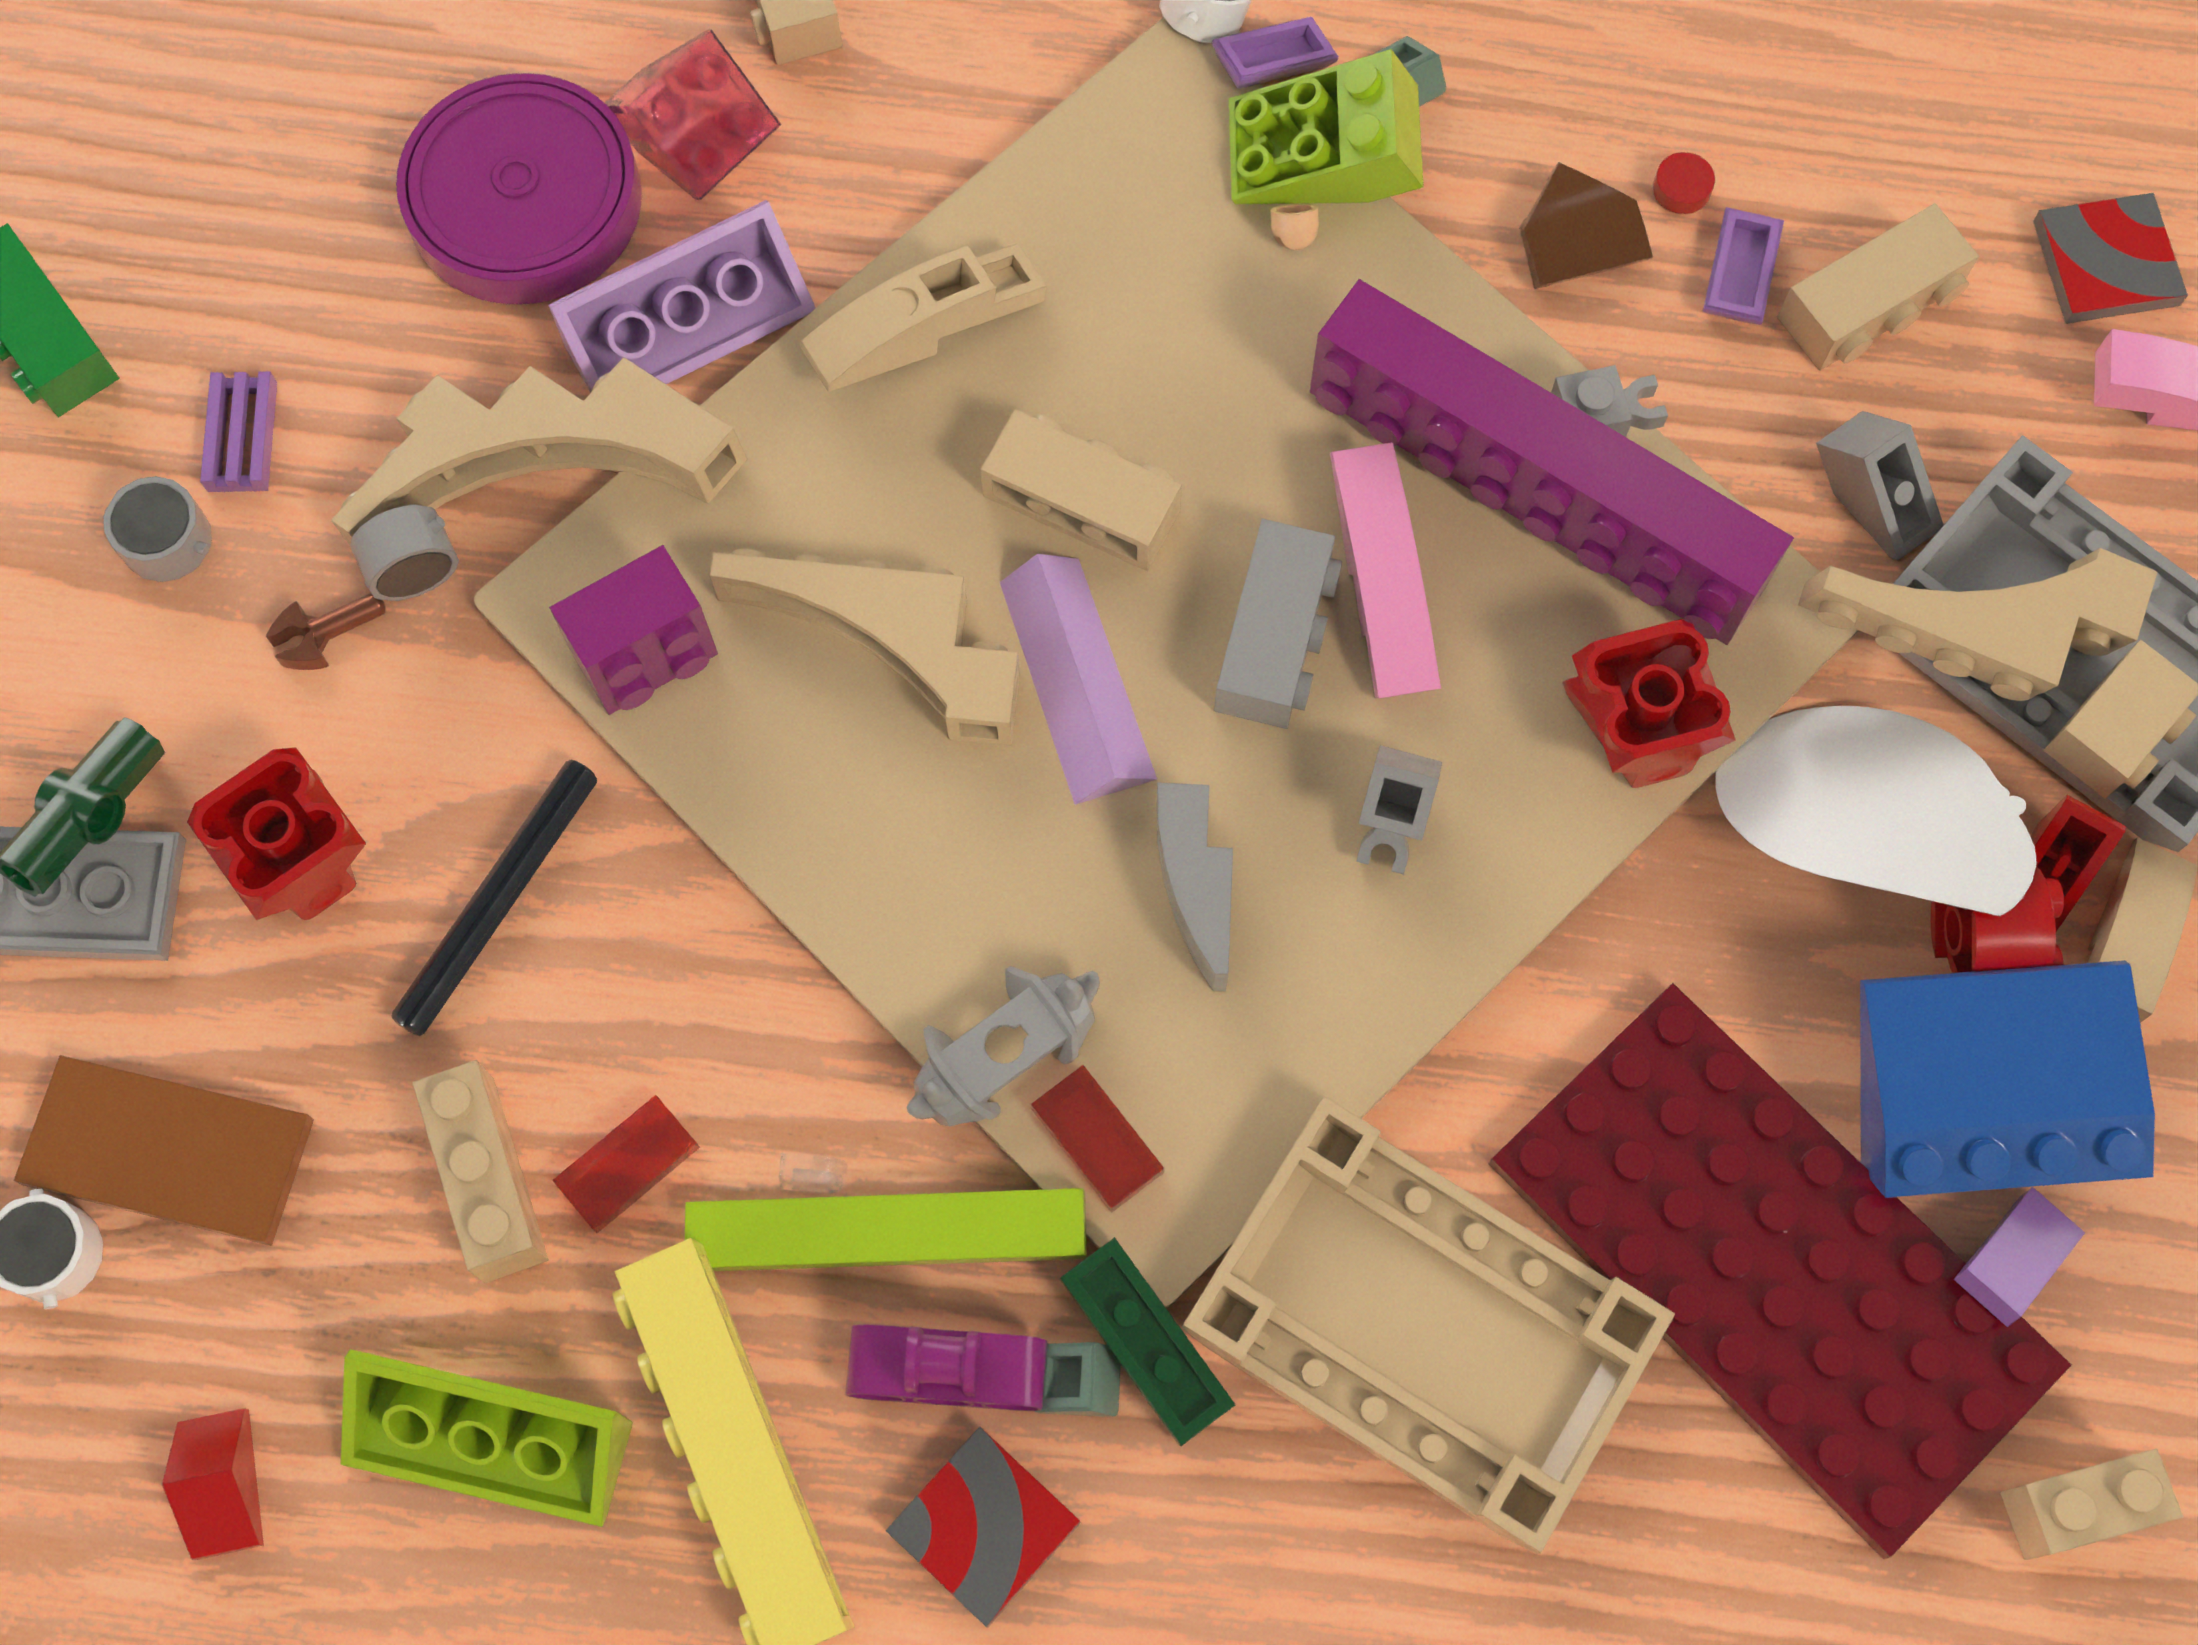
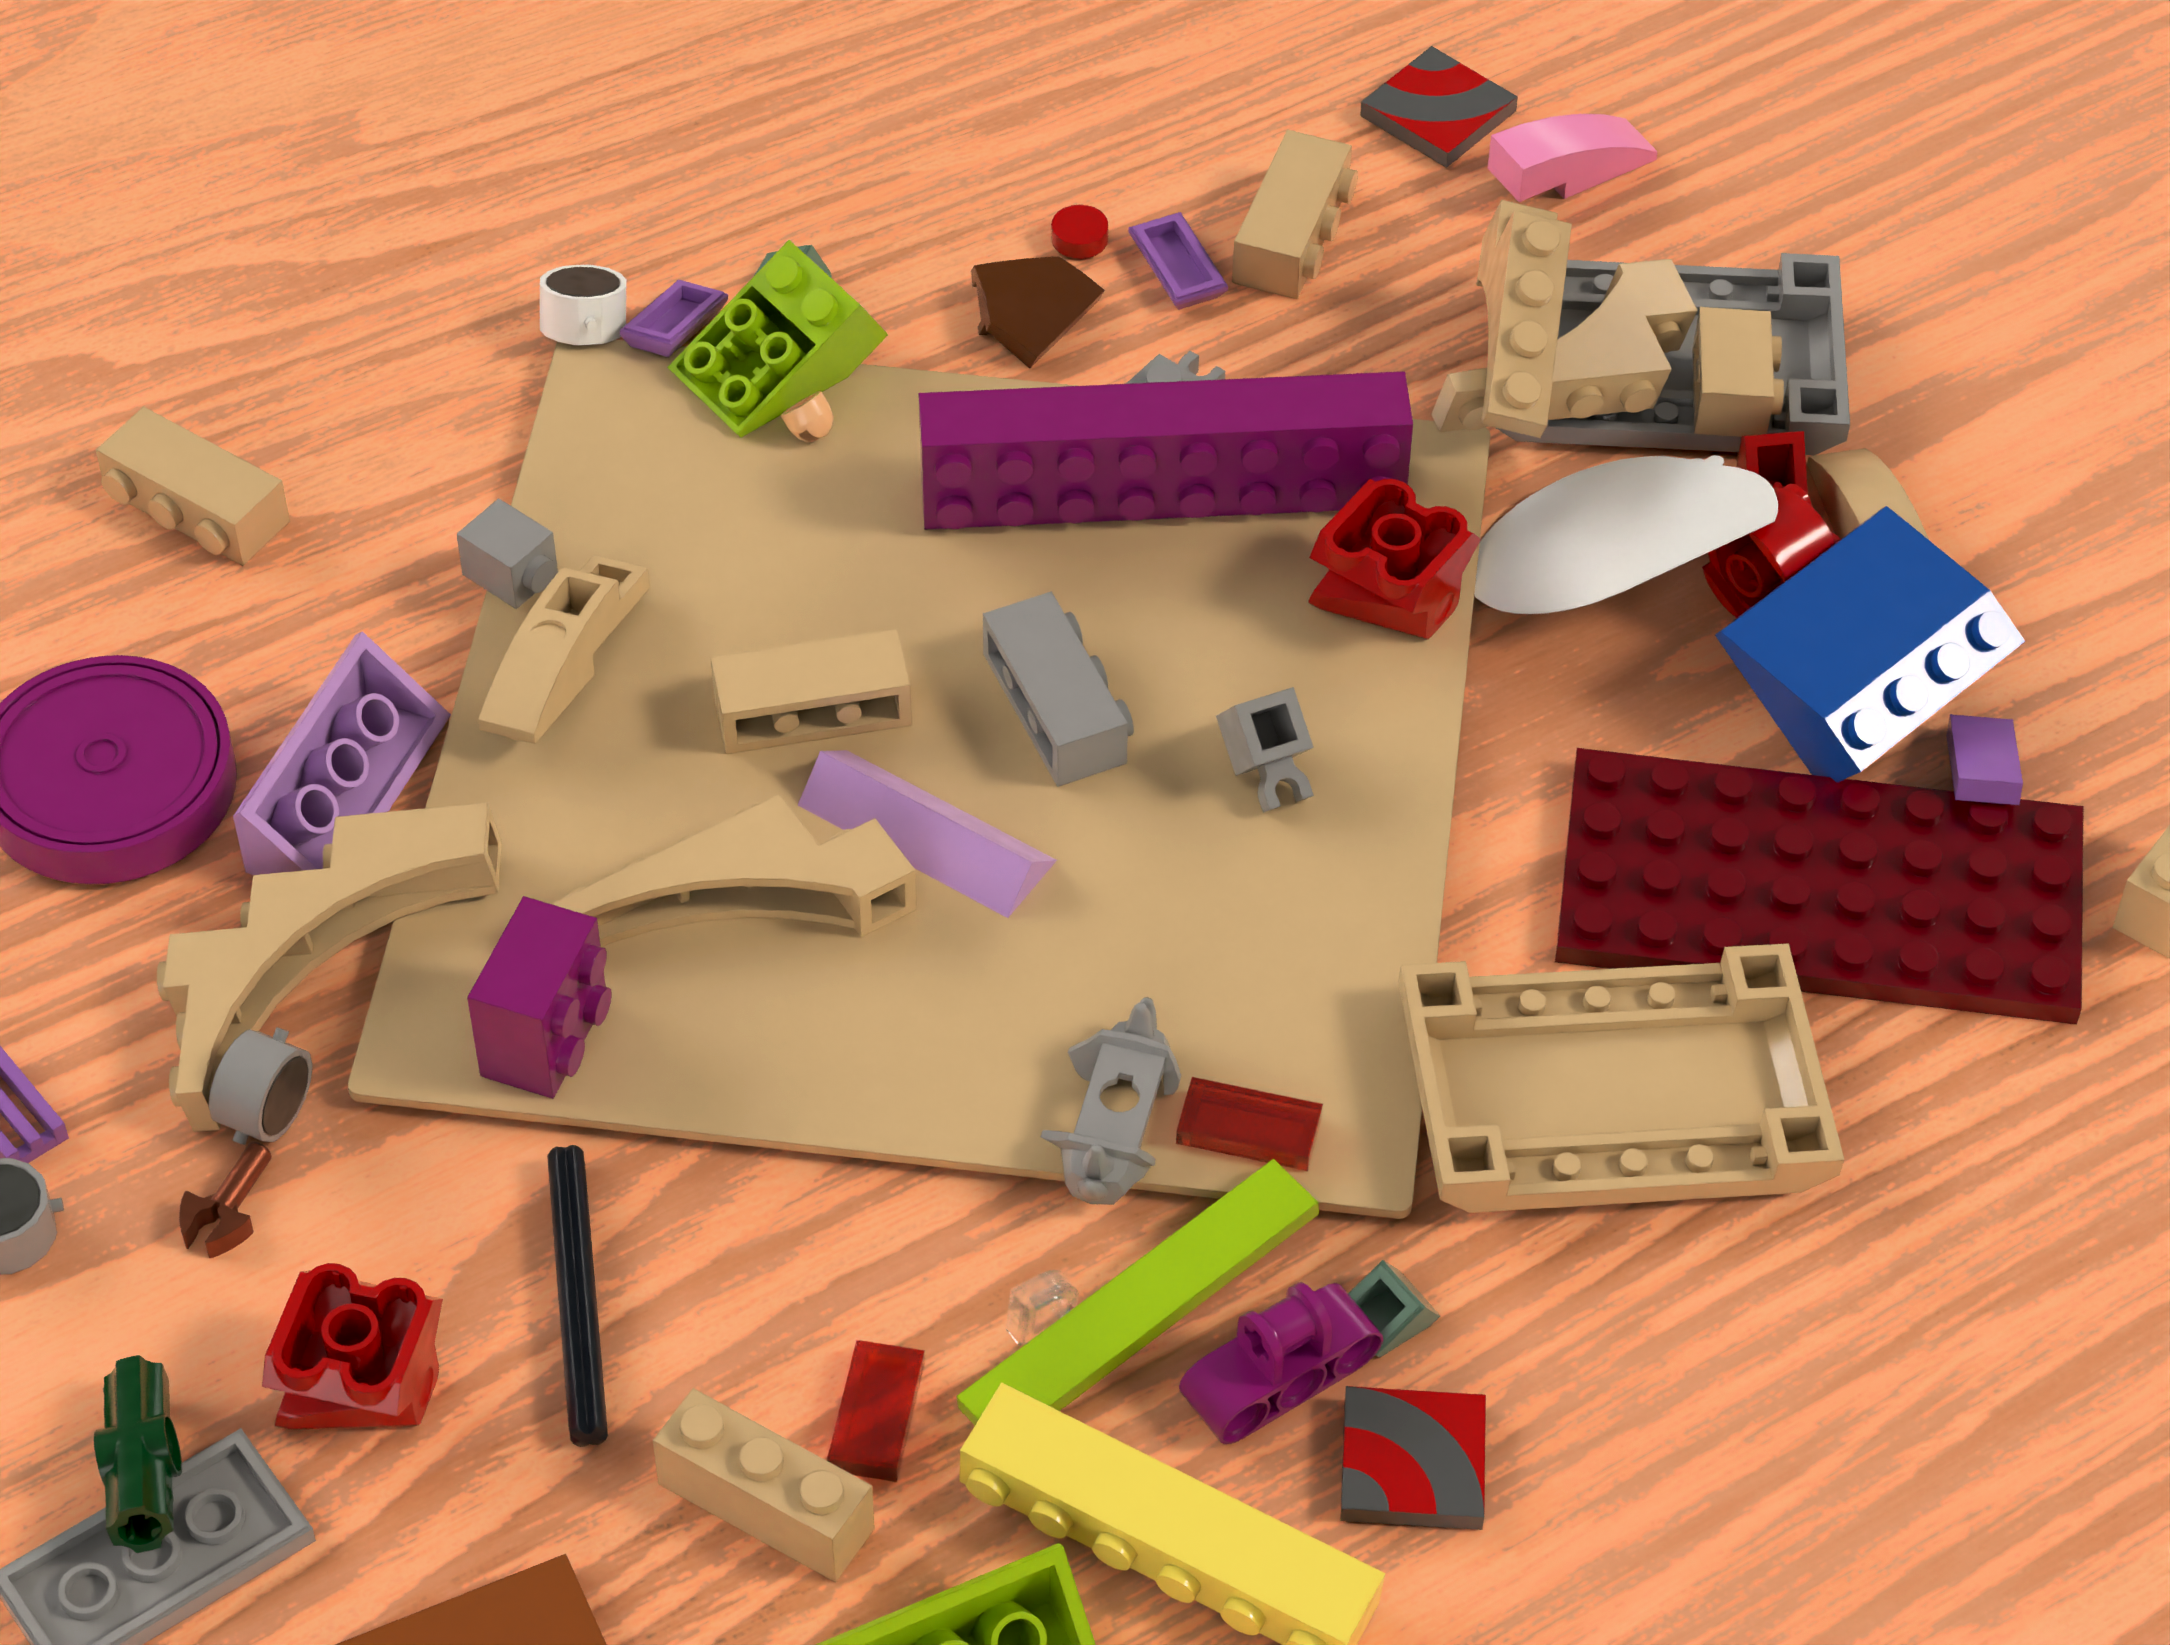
camera: 40 degrees left, 20 degrees down
(693, 114) = (214, 626): clear pink slope -> none
(953, 197) = (507, 553): none -> light grey brick
(1147, 1342) = (1420, 1234): dark green plate -> none
(1196, 877) = (1160, 895): light grey slope -> none
(1385, 570) = (1107, 600): bright pink slope -> none
(1882, 481) = (1413, 331): light grey slope -> none
(1967, 534) = (1524, 288): none -> tan arch

